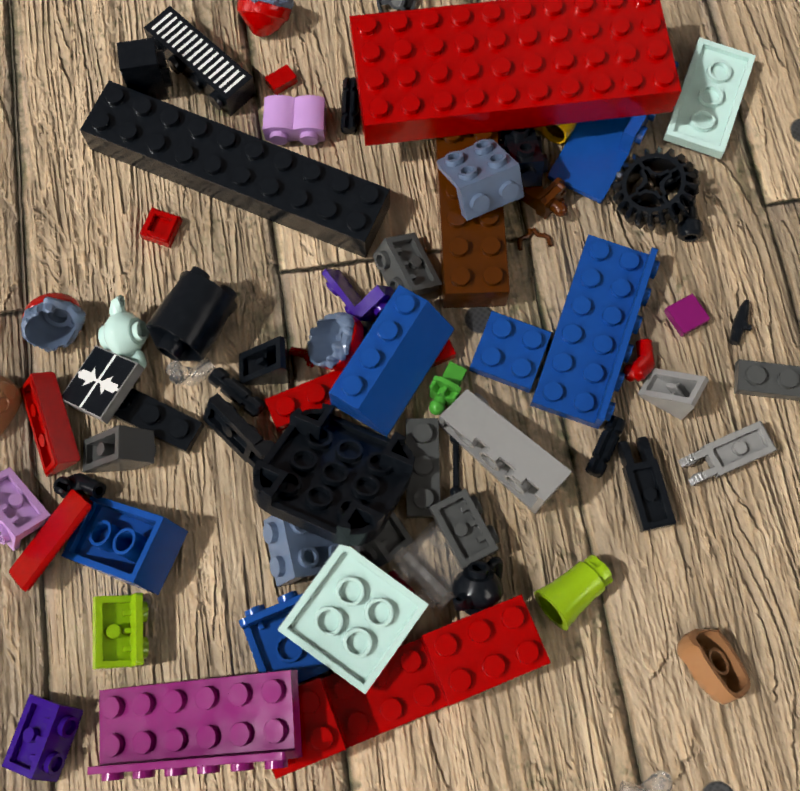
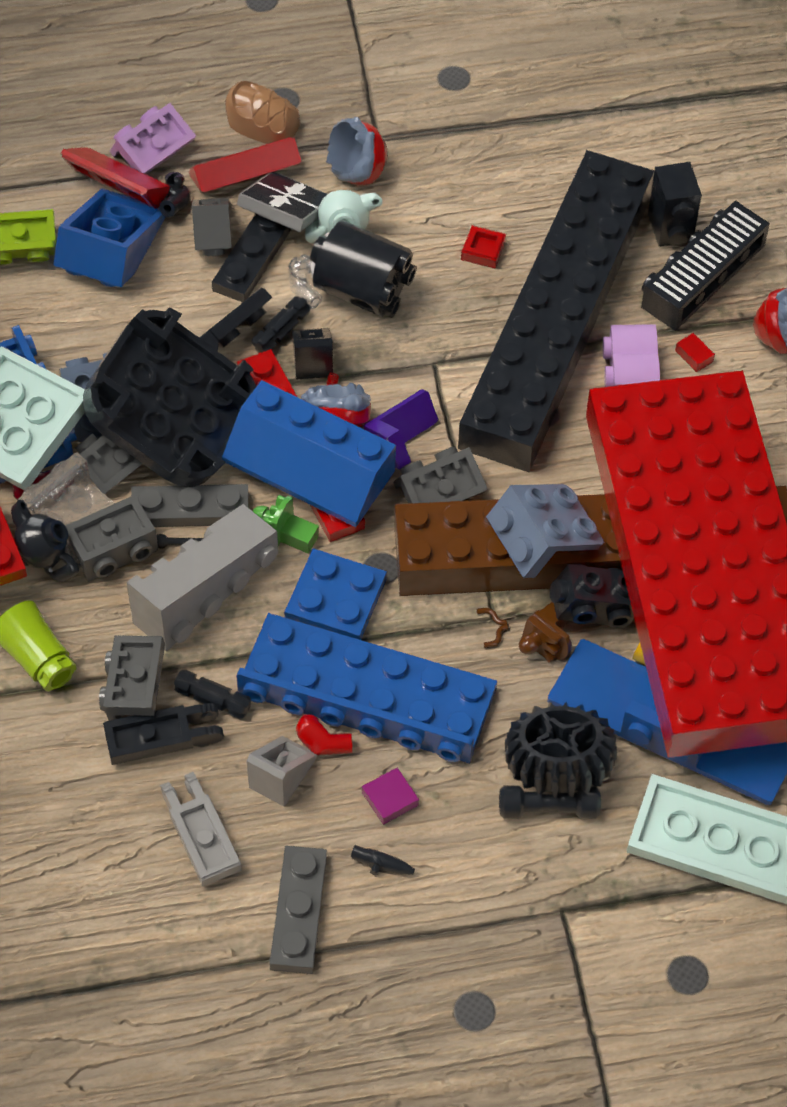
camera: 90 degrees right, 15 degrees down
(605, 505) = (133, 676): none -> dark grey bracket

